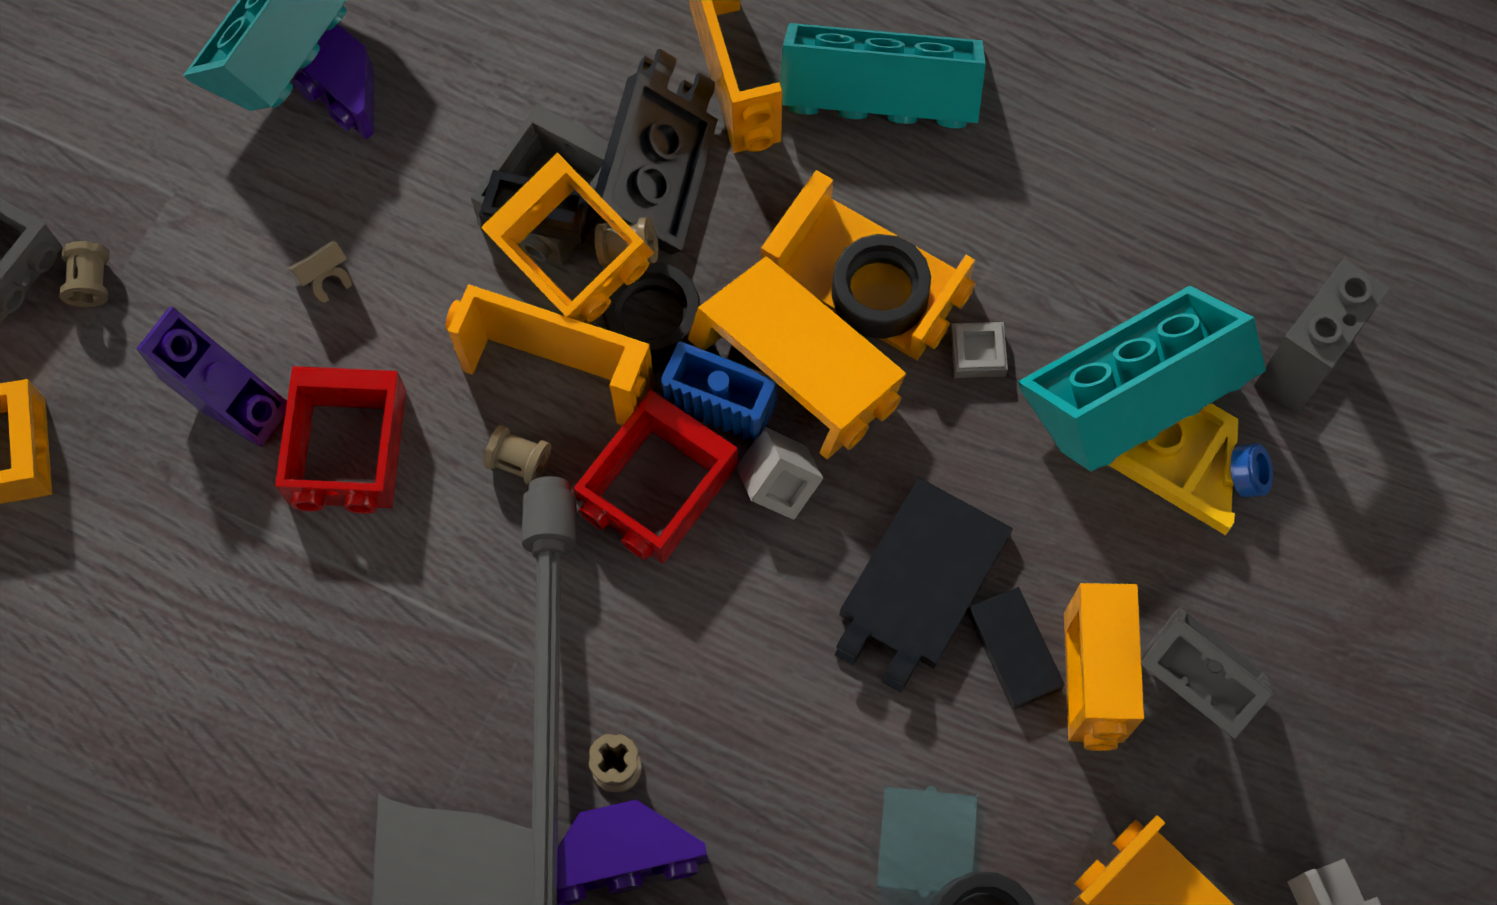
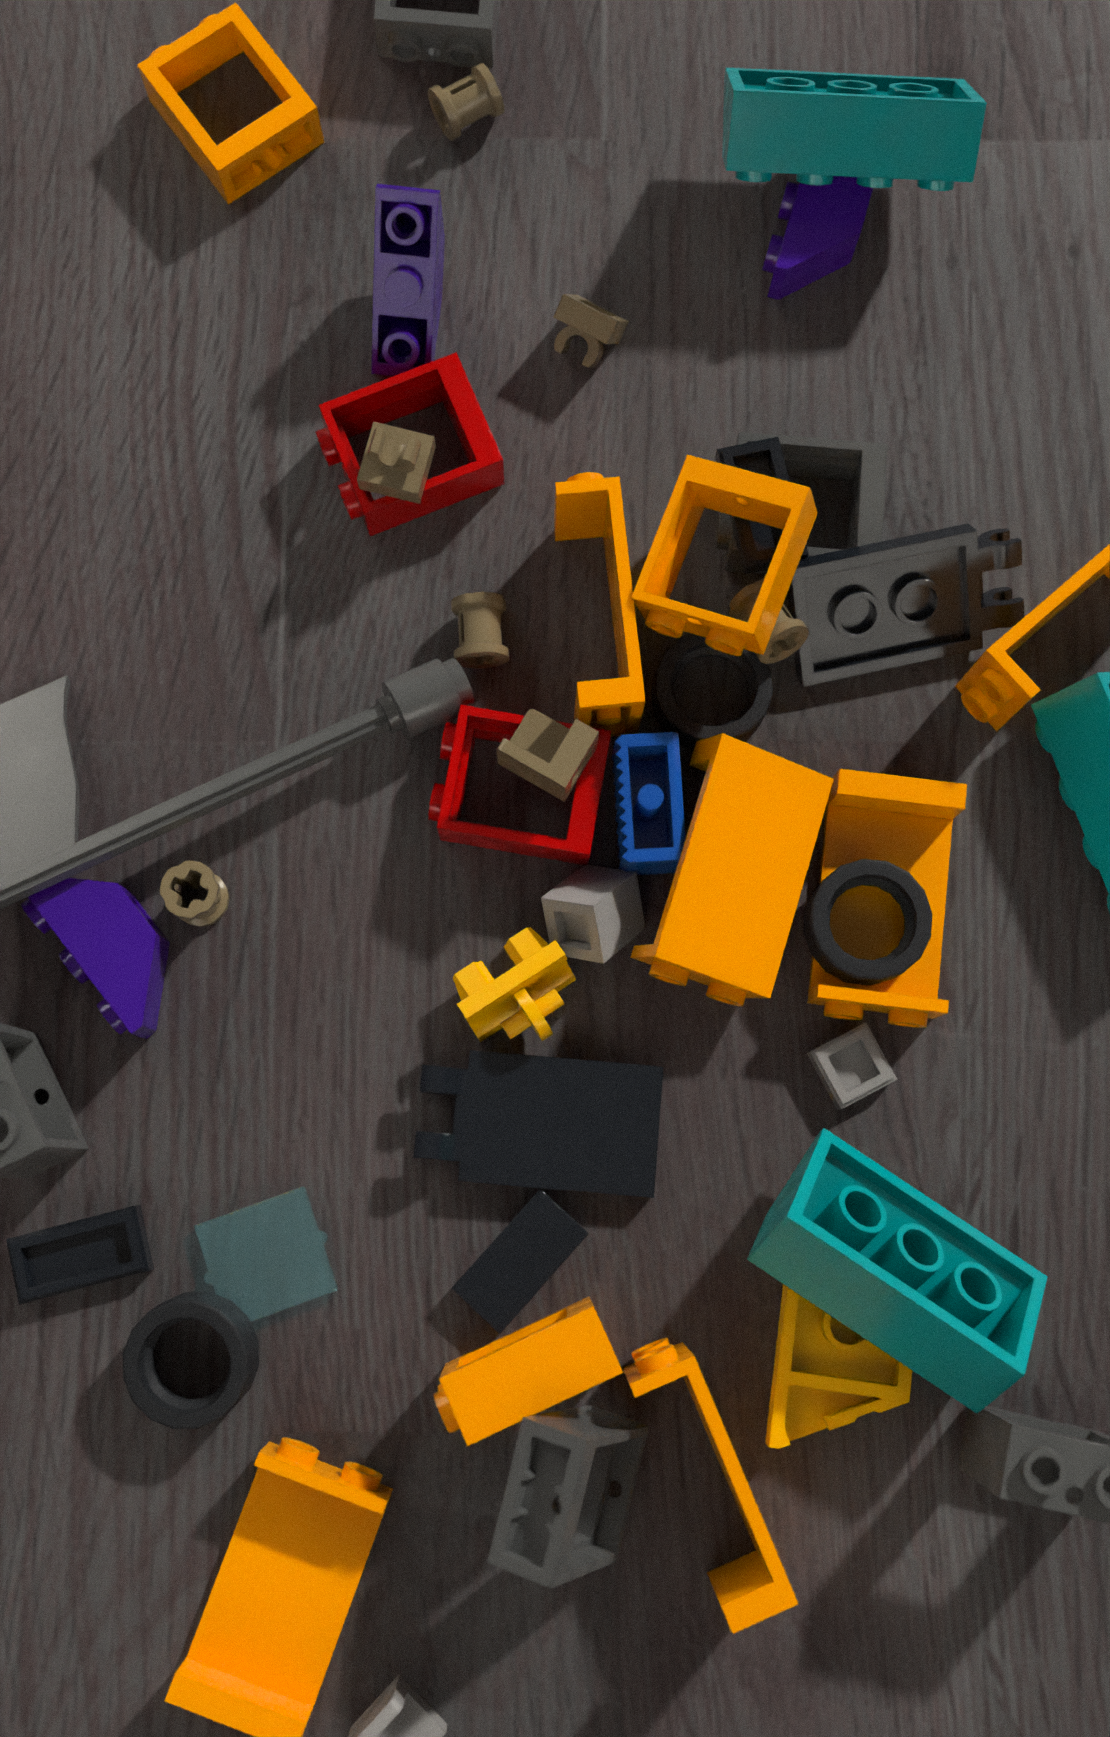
camera: 60 degrees right, 10 degrees up
(358, 446) = (396, 462): none -> dark tan tile
(648, 437) = (548, 752): none -> dark tan panel
(805, 533) = (519, 995): none -> yellow hips
(1251, 470) = (854, 1443): blue tile -> none
(1317, 562) = (755, 1583): none -> light orange panel

